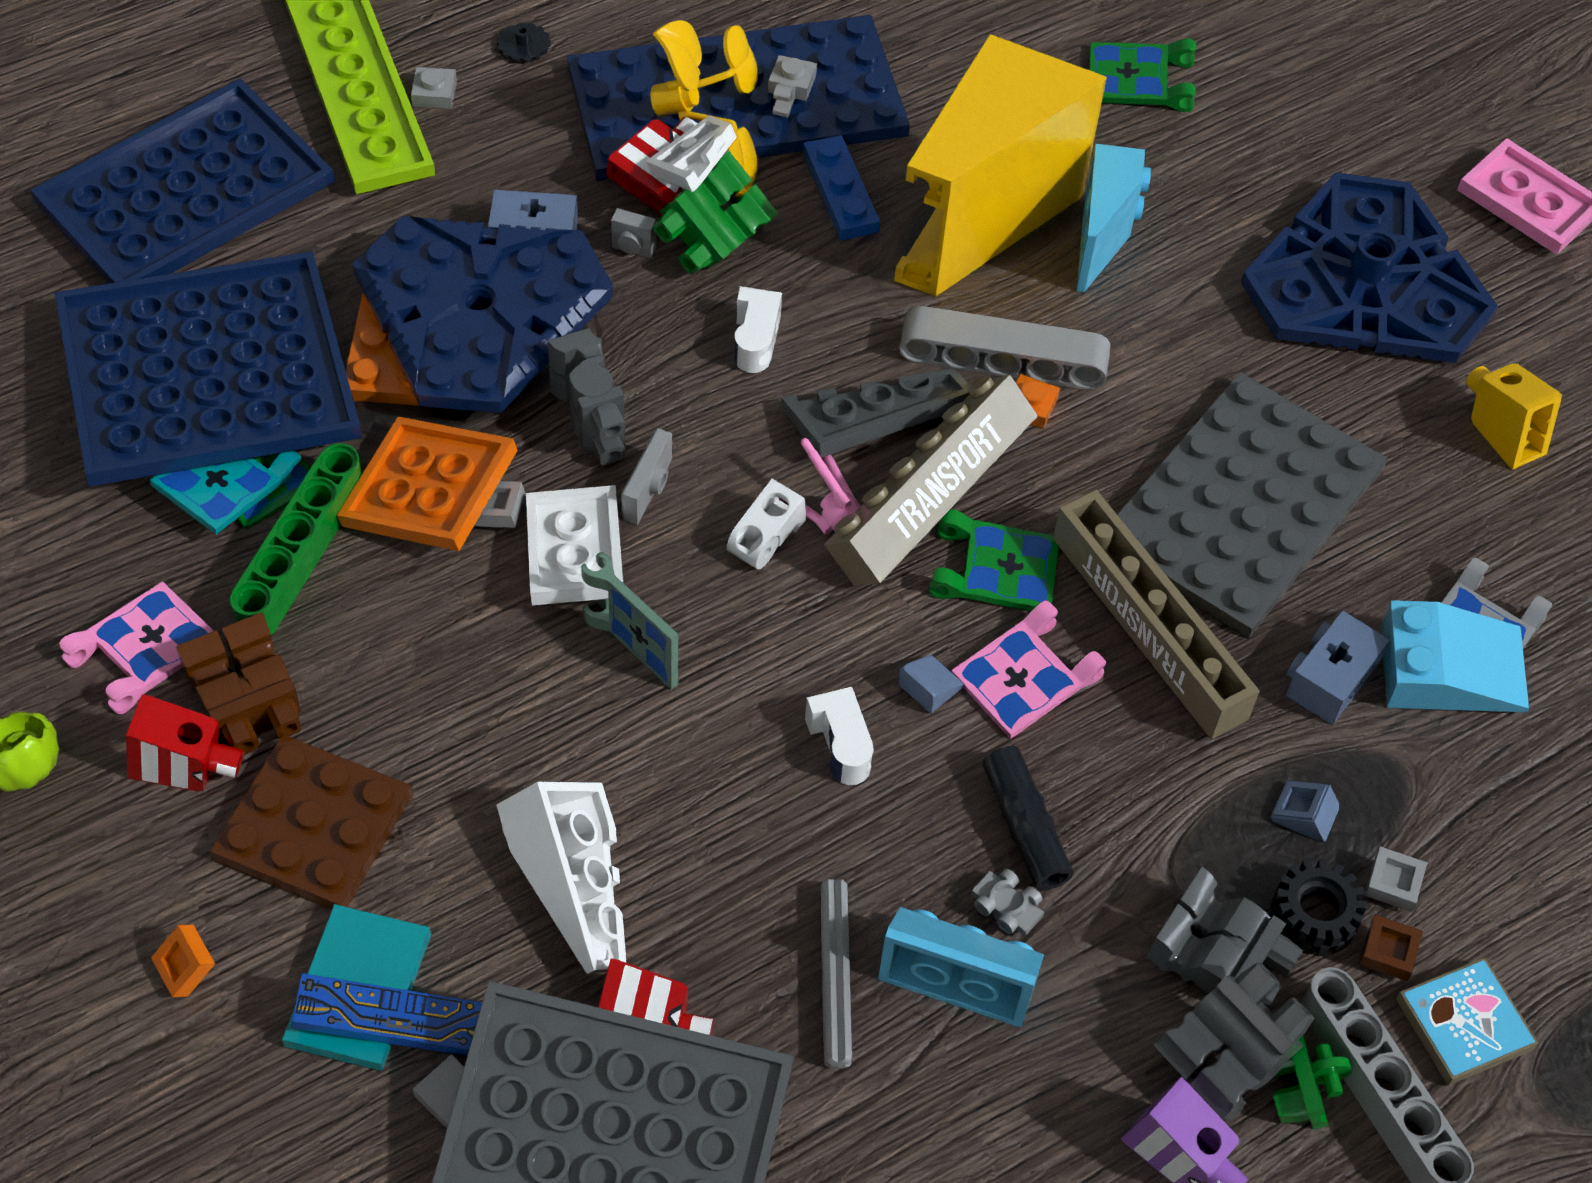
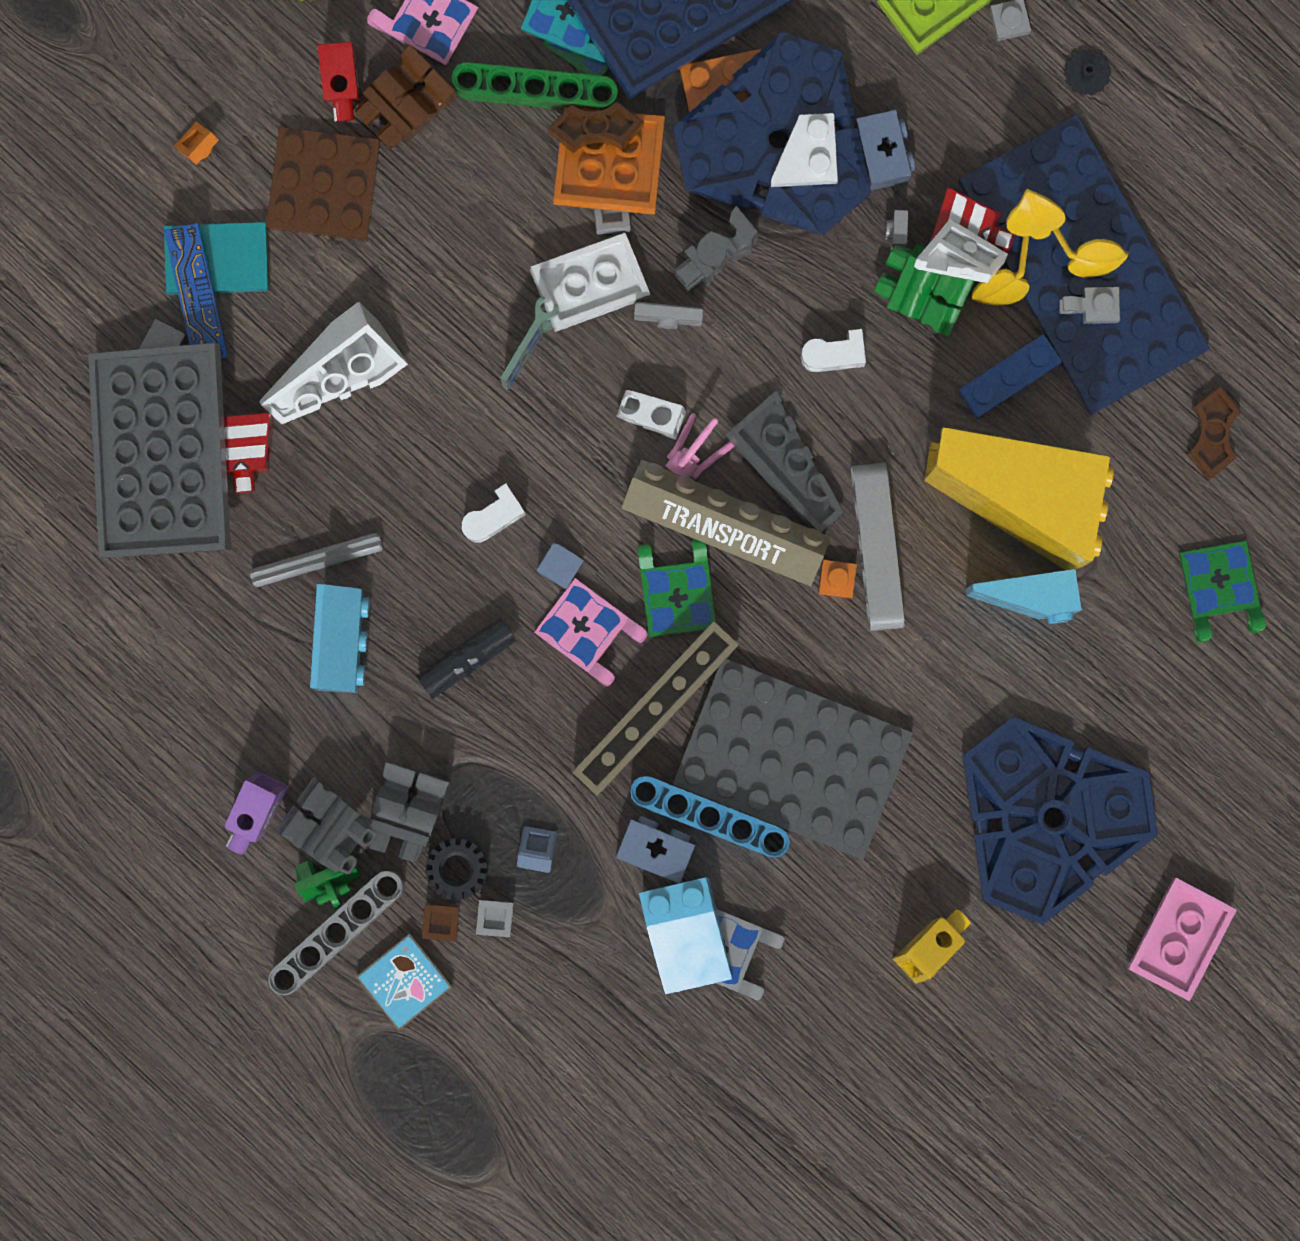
camera: 75 degrees right, 30 degrees up
(376, 492) = (610, 126): none -> reddish brown tile
(512, 264) = (809, 153): none -> white wing
(948, 33) = (1215, 419): none -> reddish brown tile
(1007, 905) = (402, 652): light grey piece -> none
(1318, 582) = (727, 817): none -> dark azure beam

